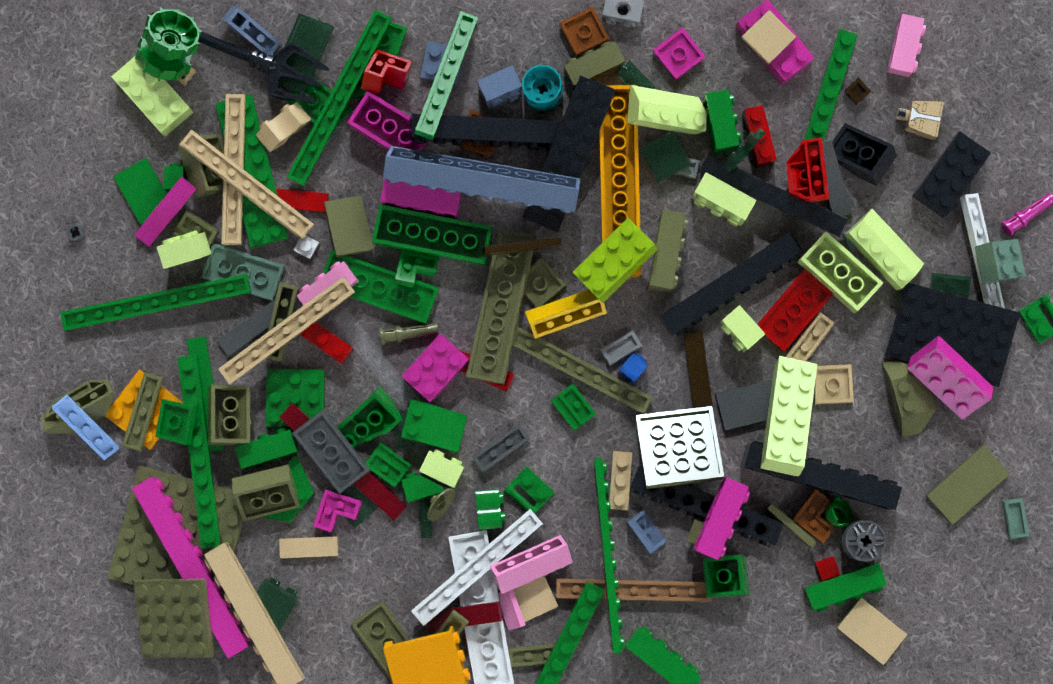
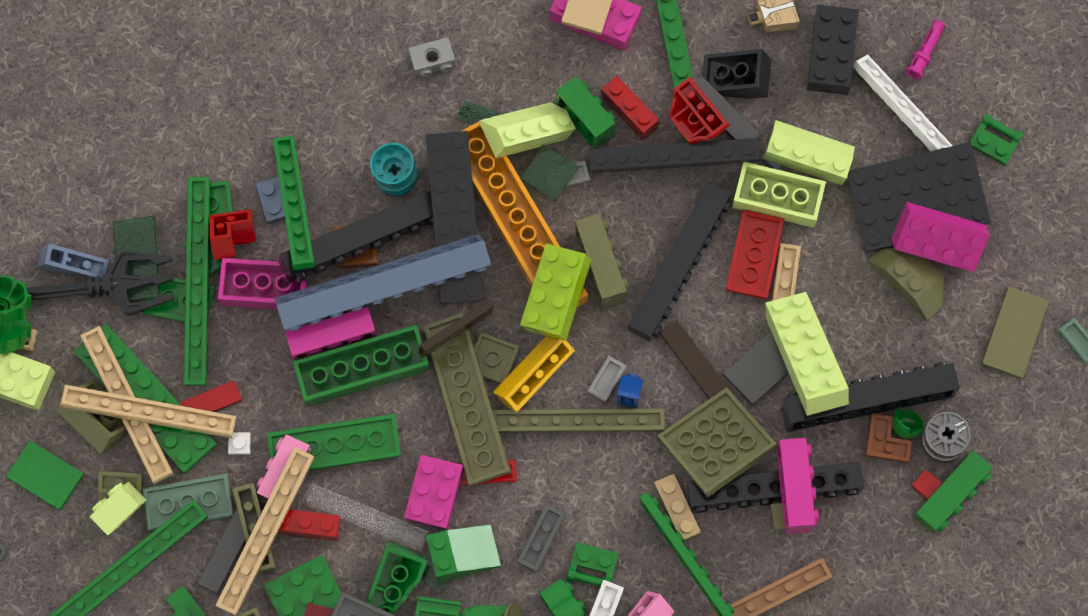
camera: 30 degrees left, 10 degrees down
(165, 211) = (78, 482): dark pink tile -> none
(172, 175) = (71, 445): green brick -> none
(278, 130) = (152, 343): tan brick -> none
(348, 226) = (272, 401): olive tile -> none
(399, 334) = (379, 479): olive pin -> none
(413, 263) = (356, 403): green plate -> none
(441, 468) = (493, 589): yellowish green brick -> none
(500, 88) = (352, 190): sand blue brick -> none
(573, 407) = (591, 460): green plate -> none
(584, 31) = (405, 97): dark orange plate -> none
(594, 63) = (432, 120): olive brick -> none
(646, 531) = (730, 544): sand blue hinge -> none
(679, 54) = (509, 71): dark pink plate -> none
(723, 200) = (628, 184): yellowish green brick -> none
(726, 576) = (833, 543): green slope -> none
(742, 151) = (621, 129): clear green plate -> none
(742, 329) = (715, 295): yellowish green slope -> none
(790, 525) = (867, 461): olive tile -> none
(833, 385) = (833, 305): tan tile -> none
(857, 91) = (699, 18): dark brown plate -> none
(871, 631) = (1004, 522): tan tile -> none
(951, 284) = (890, 150): clear green plate -> none
(1000, 261) = (924, 105): sand green brick -> none

